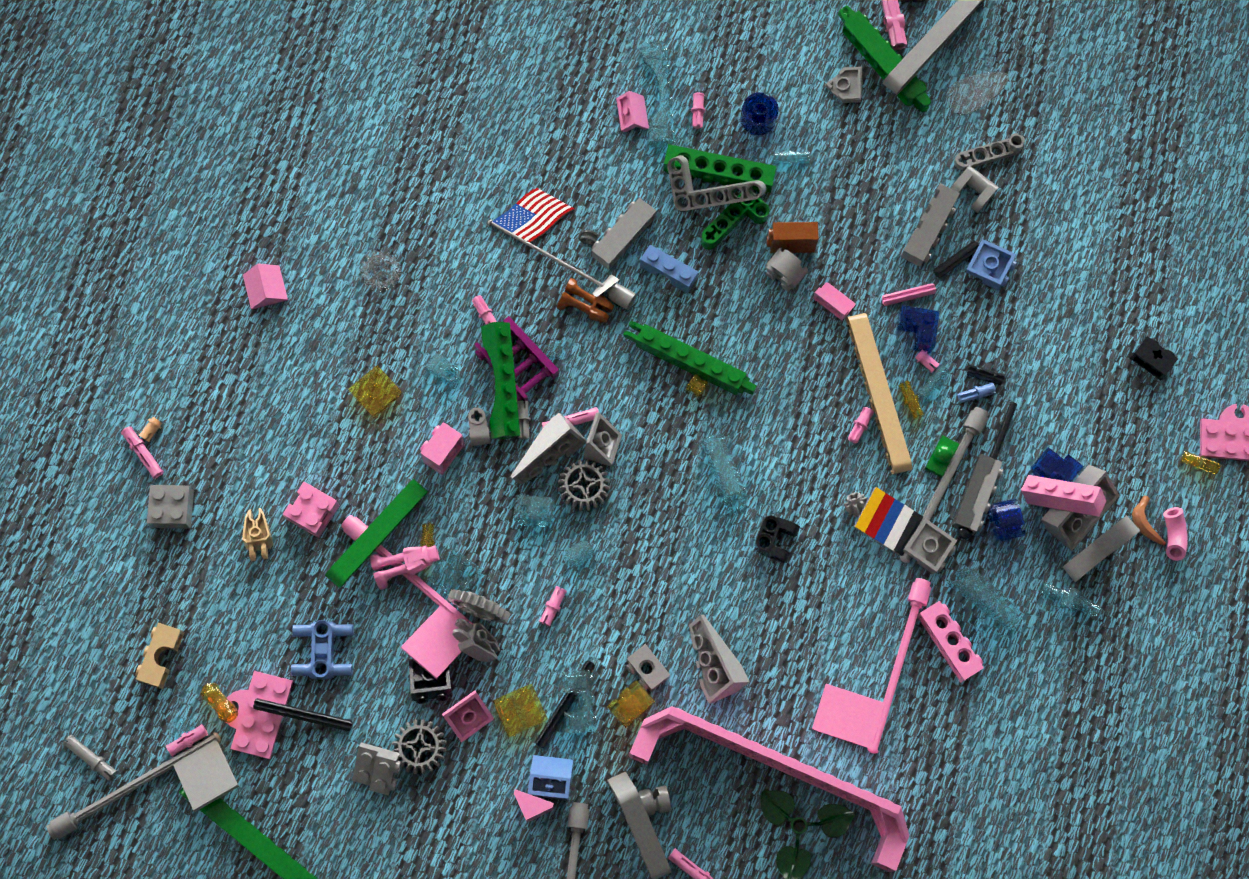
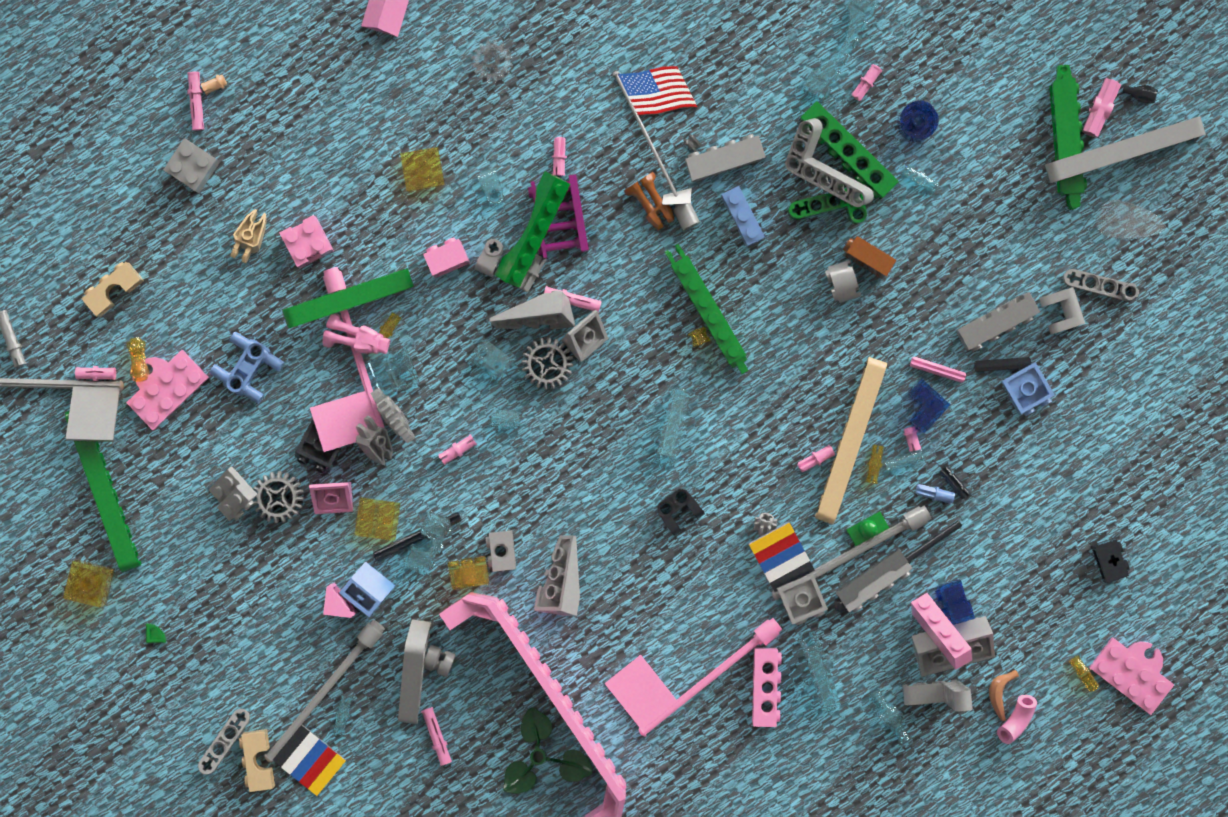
camera: 35 degrees right, 15 degrees up
(302, 714) = (199, 412): black axle -> none
(632, 111) = (807, 47): bright pink panel -> none
(833, 300) = (869, 334): bright pink panel -> none
(847, 85) = (1017, 142): light grey plate -> none
(1007, 520) = (882, 619): clear blue brick -> none

